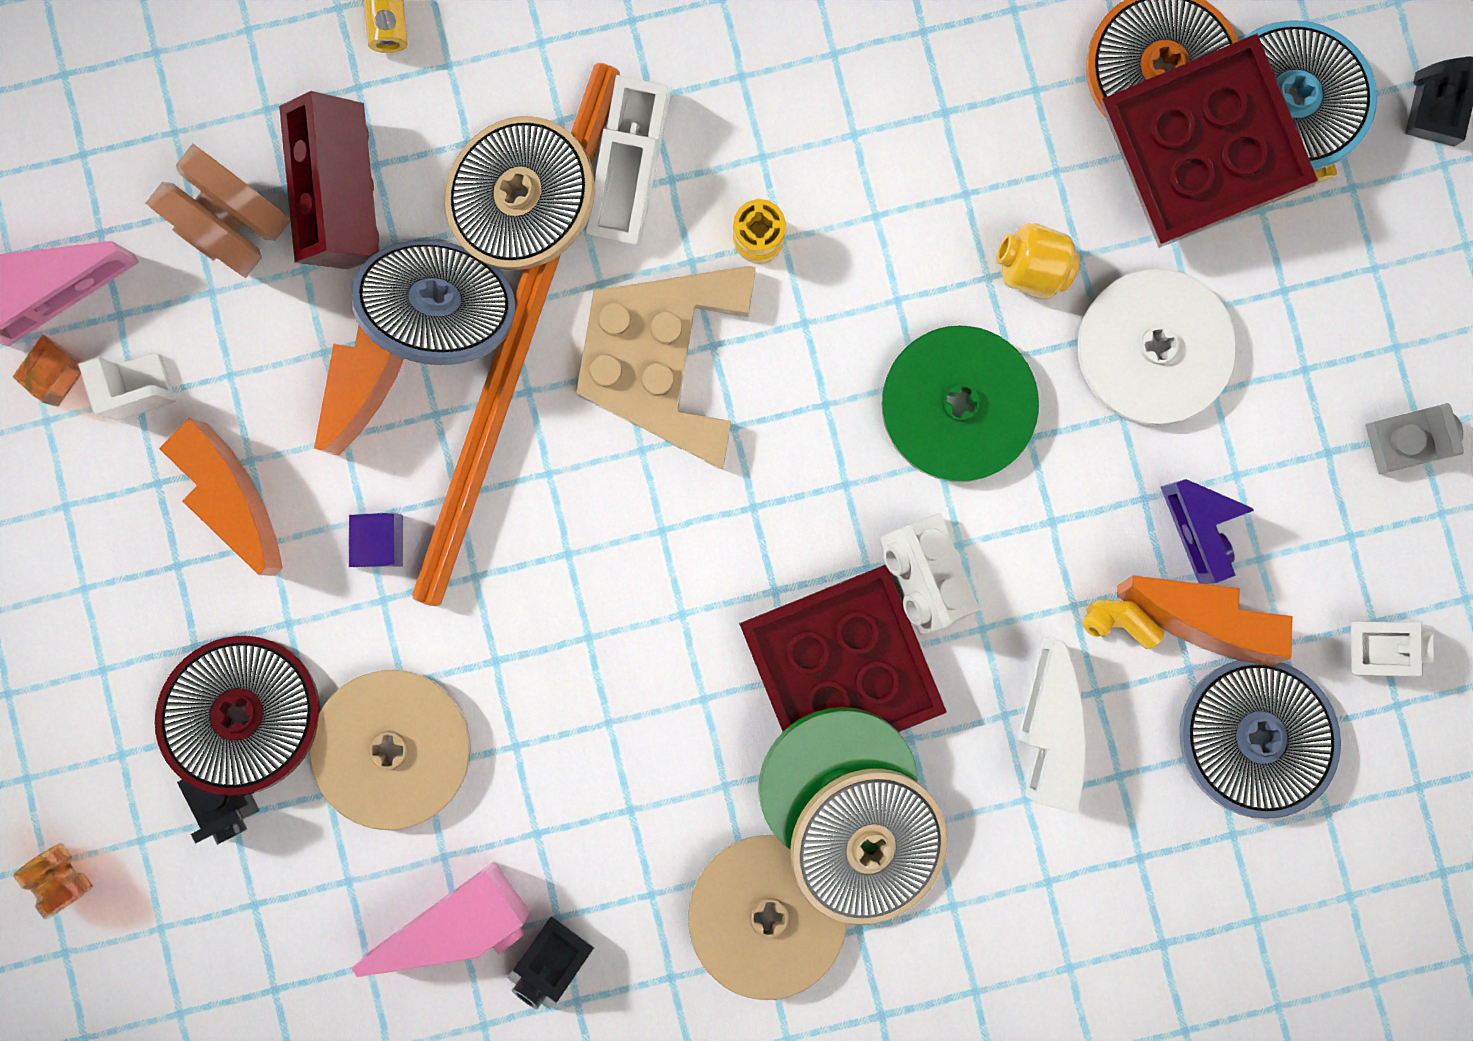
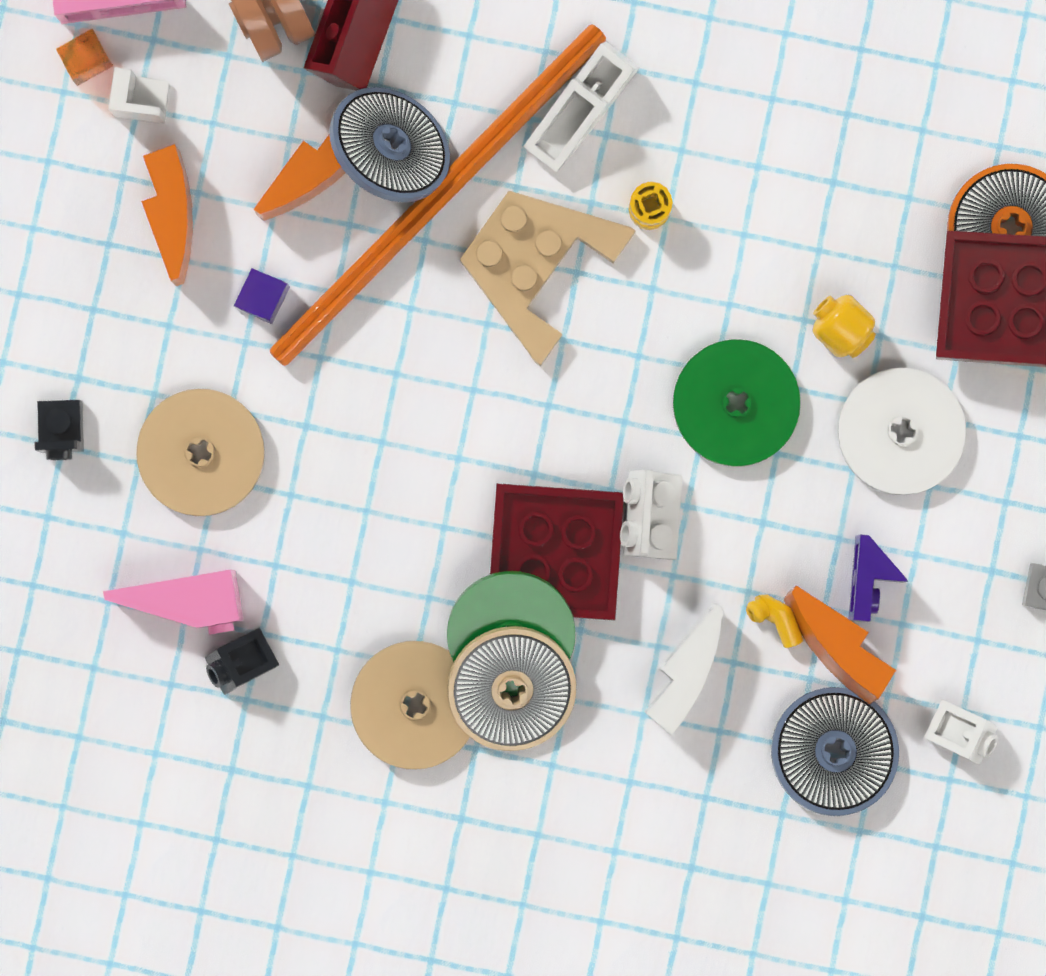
camera: 30 degrees right, 0 degrees up
(247, 757) = (98, 406): piece -> none
(532, 227) = (484, 123): piece -> none

